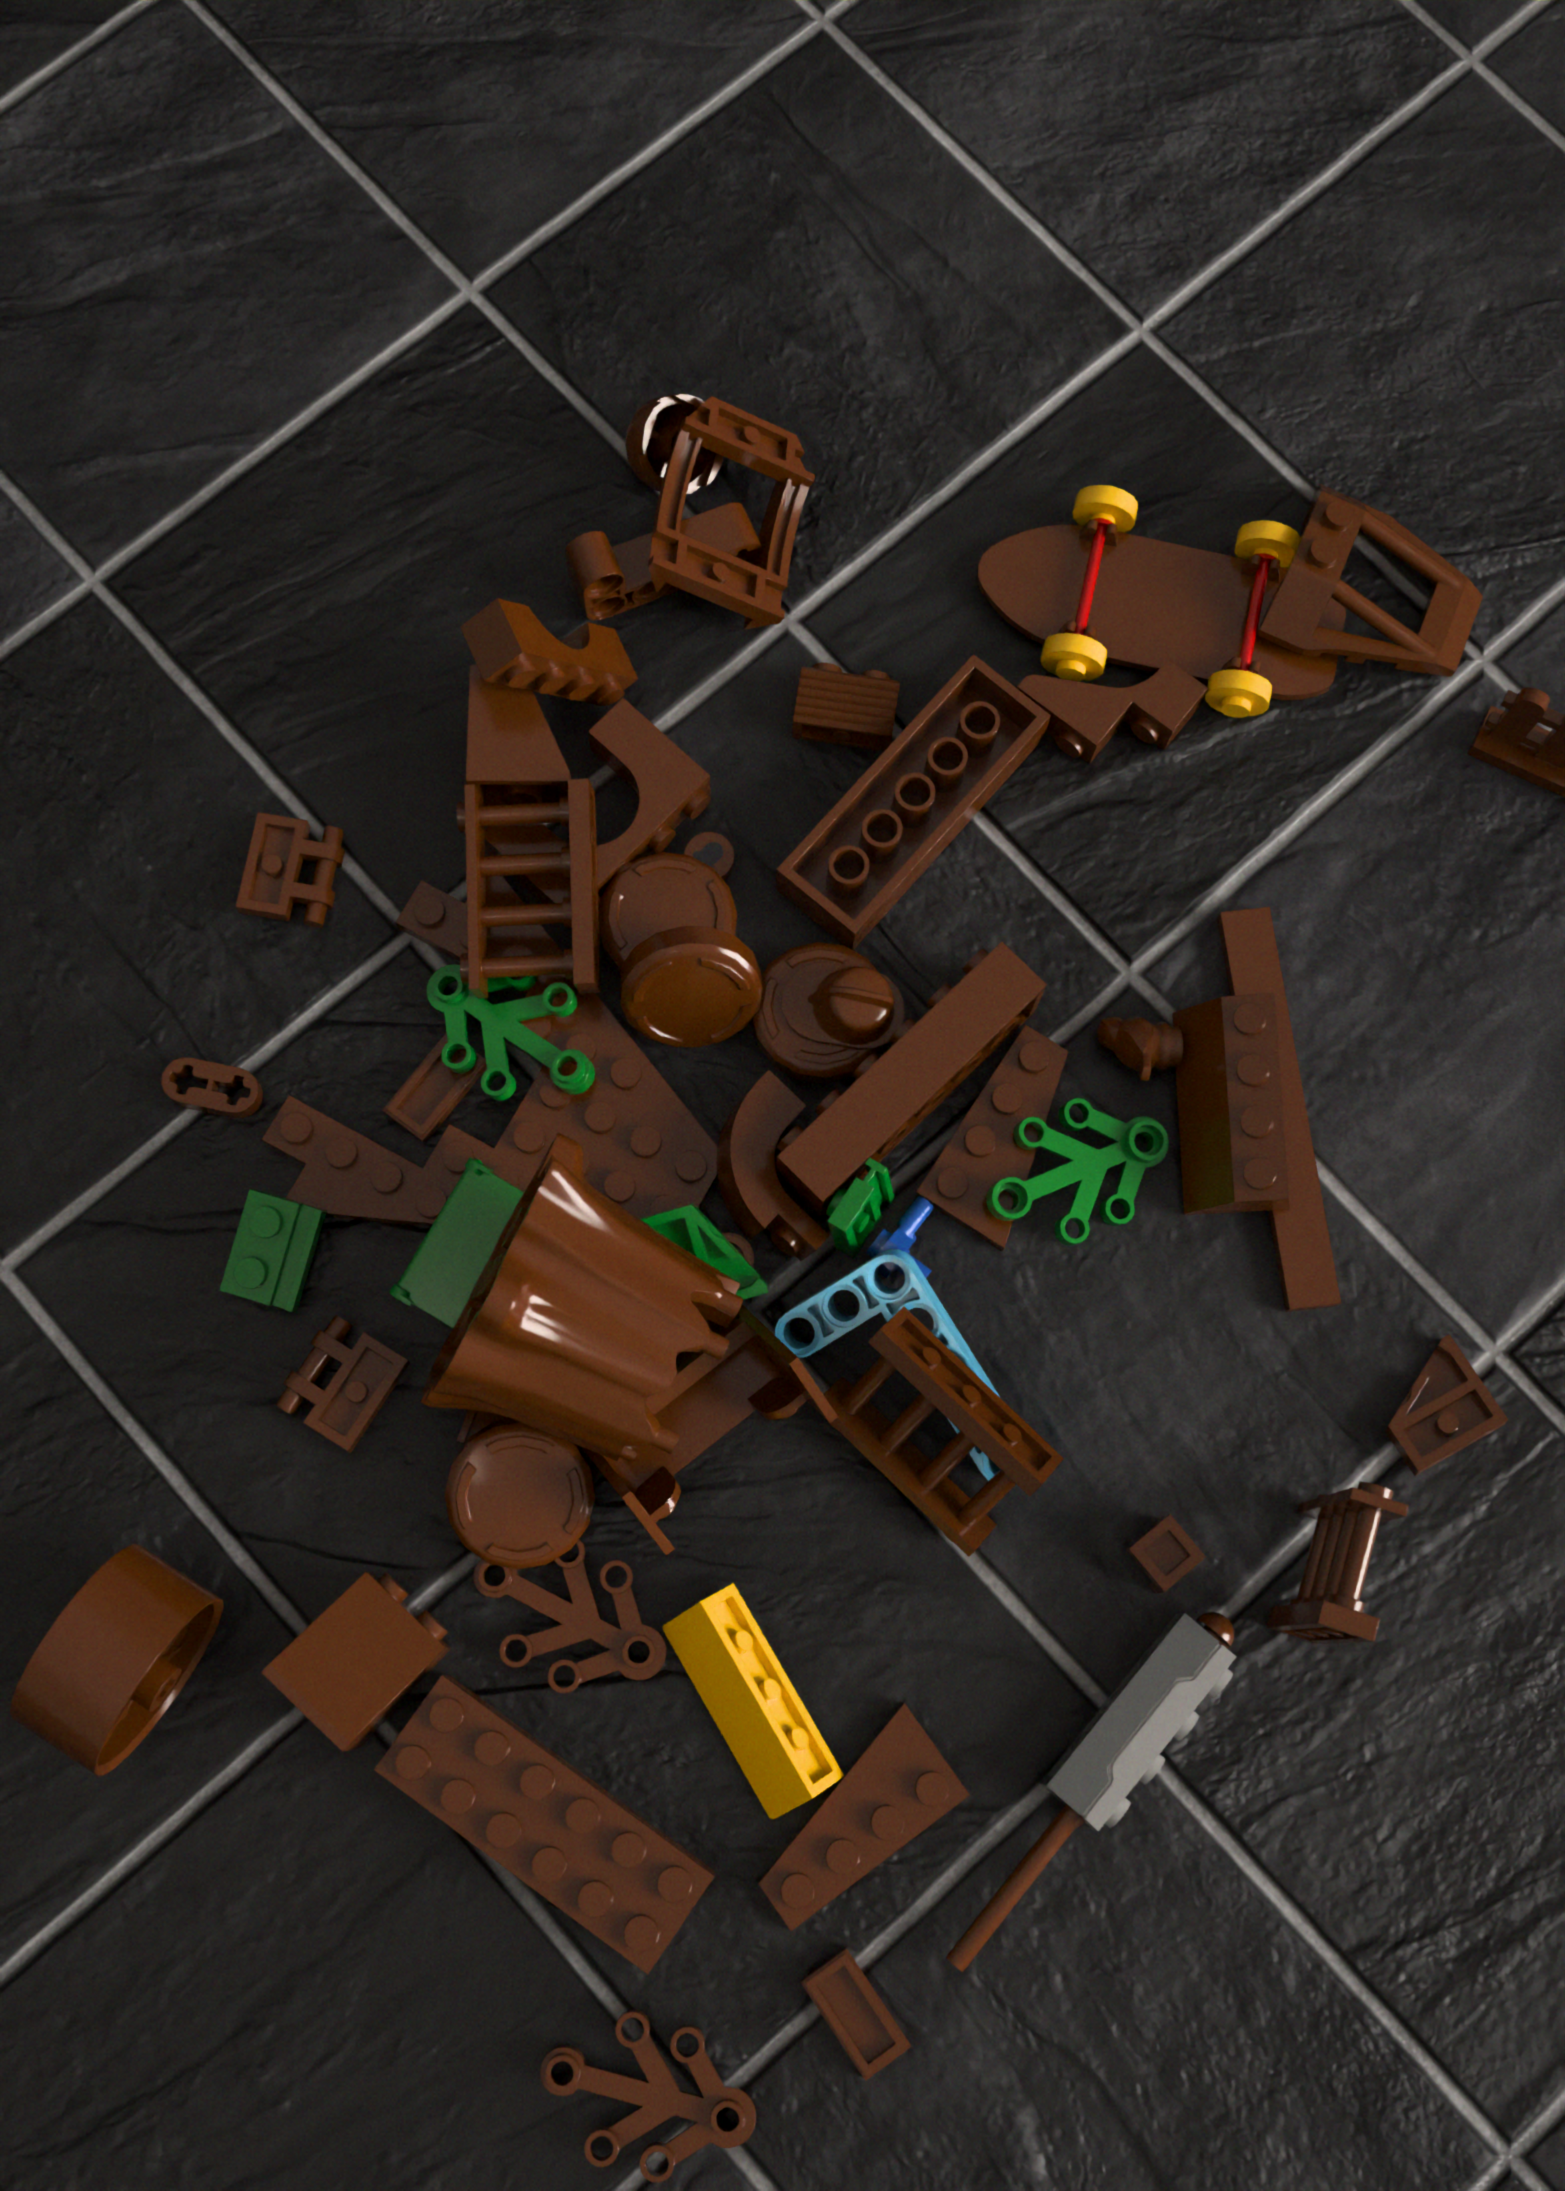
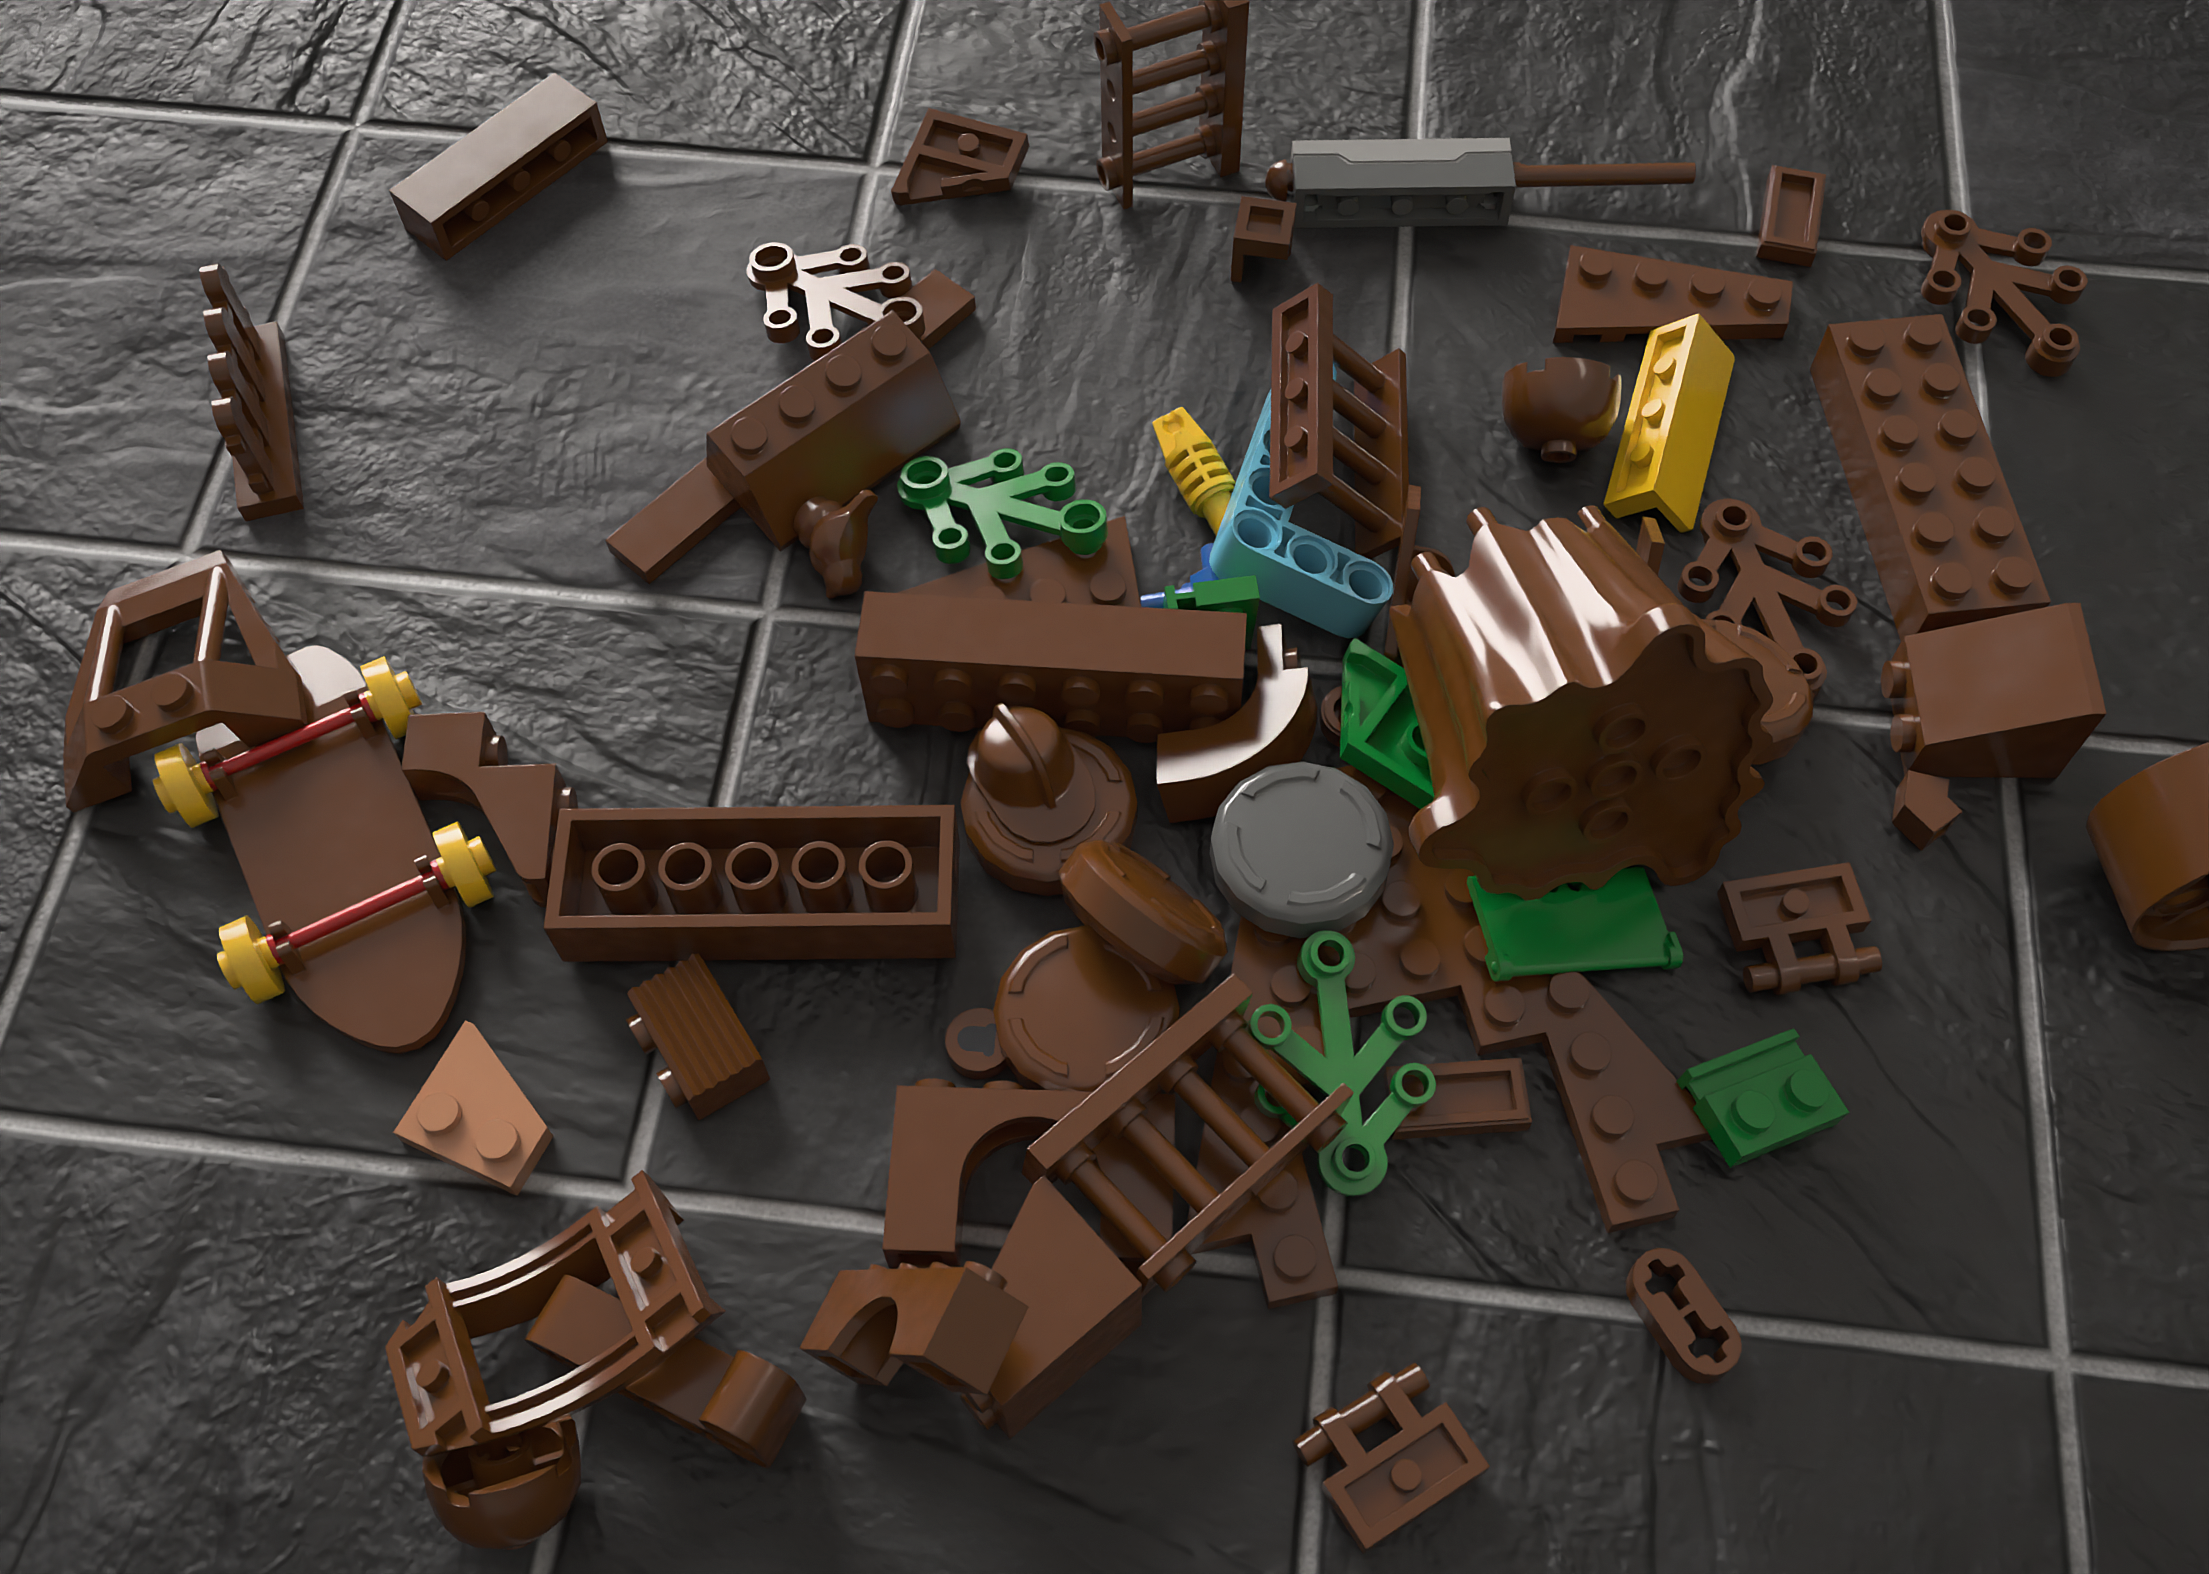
camera: 125 degrees left, 15 degrees down
(339, 1547) = (1923, 808): none -> reddish brown piece
(649, 1116) = (1301, 849): none -> dark grey piece
(825, 1615) = (1561, 407): none -> reddish brown cylinder
(905, 572) = (476, 1116): none -> nougat wing
(999, 1327) = (1195, 466): none -> yellow hinge
(1375, 1205) = (777, 269): none -> plant

